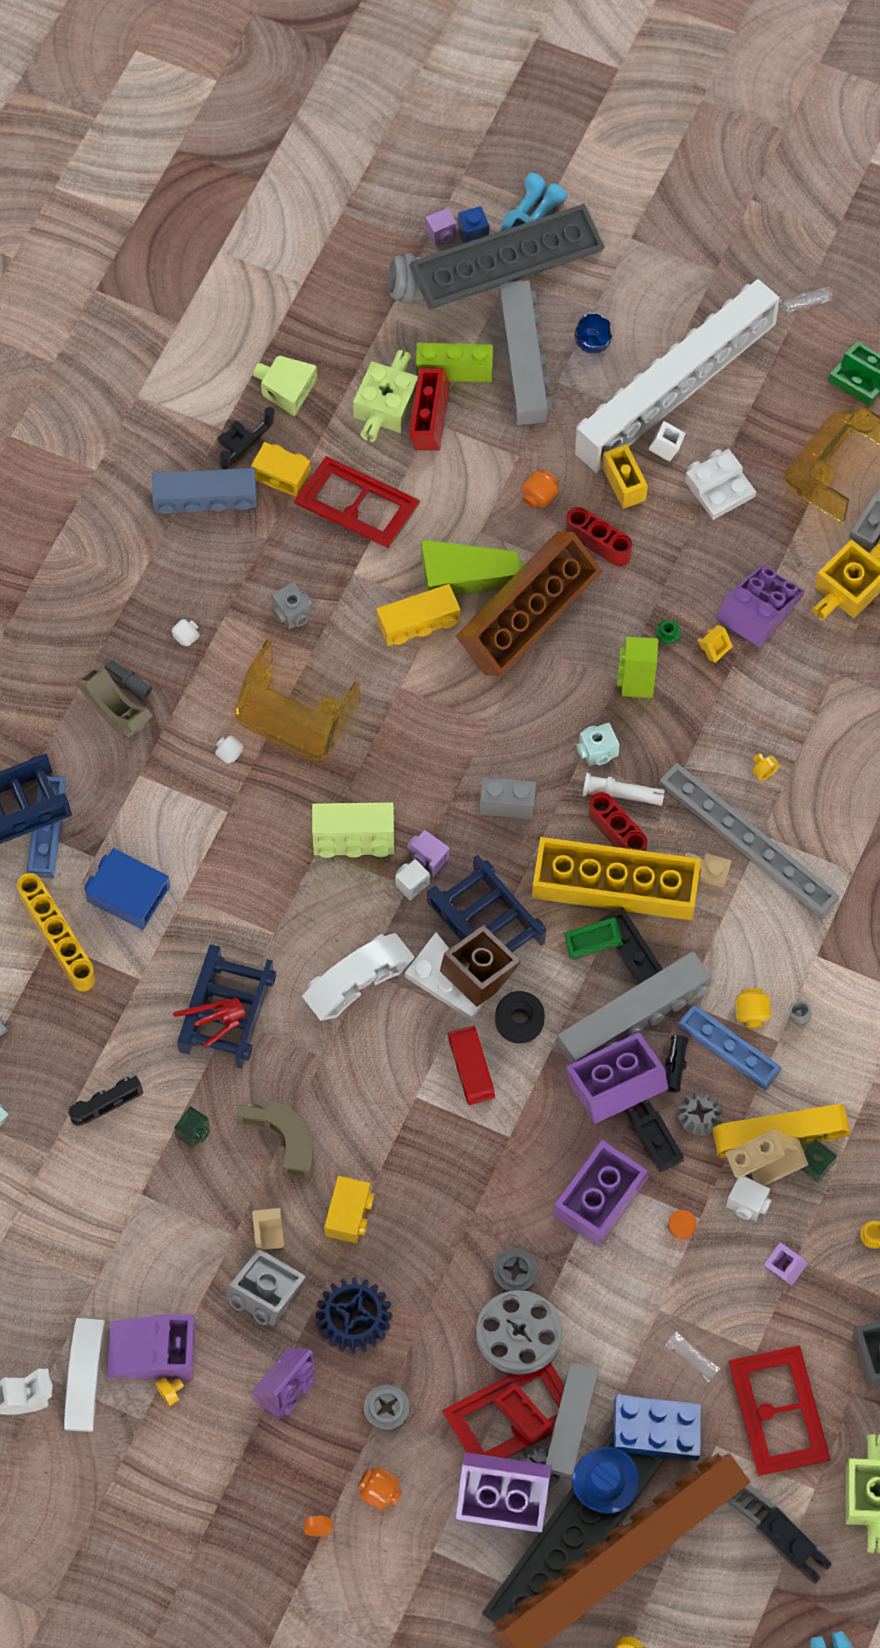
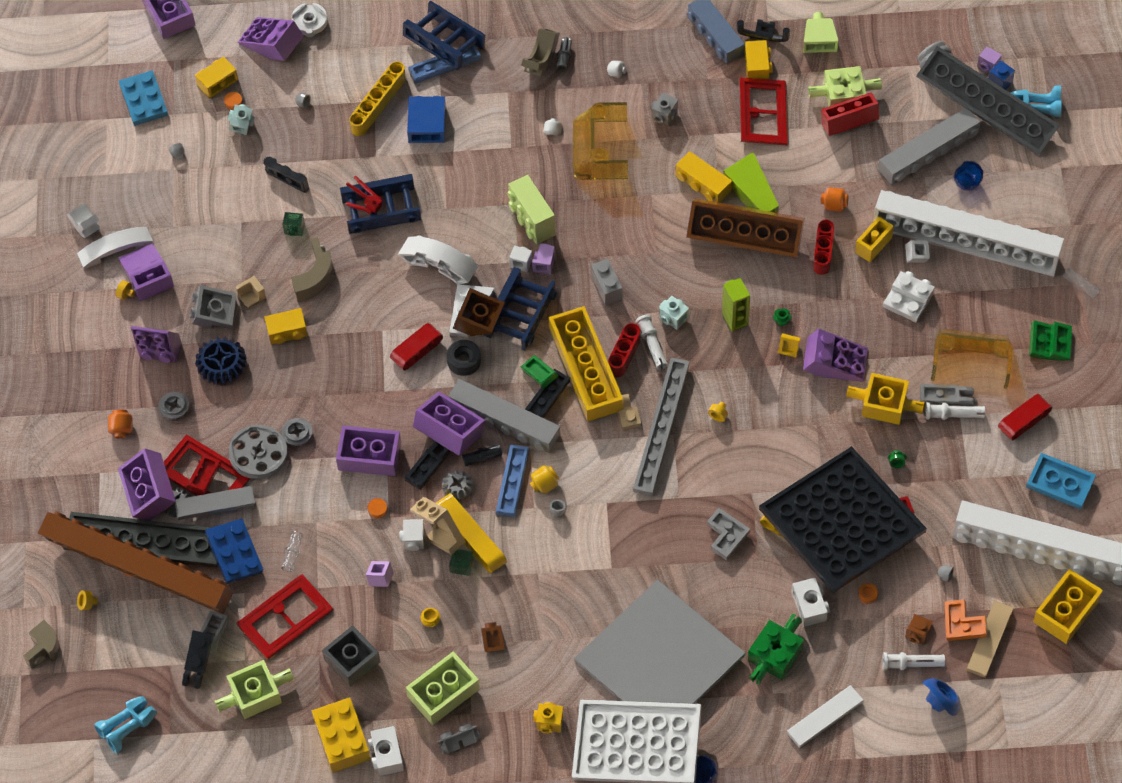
camera: 65 degrees right, 5 degrees down
(318, 1526) = (81, 404): orange tile -> none
(459, 361) = (895, 113): lime brick -> none
(605, 1480) = (182, 536): blue hat -> none

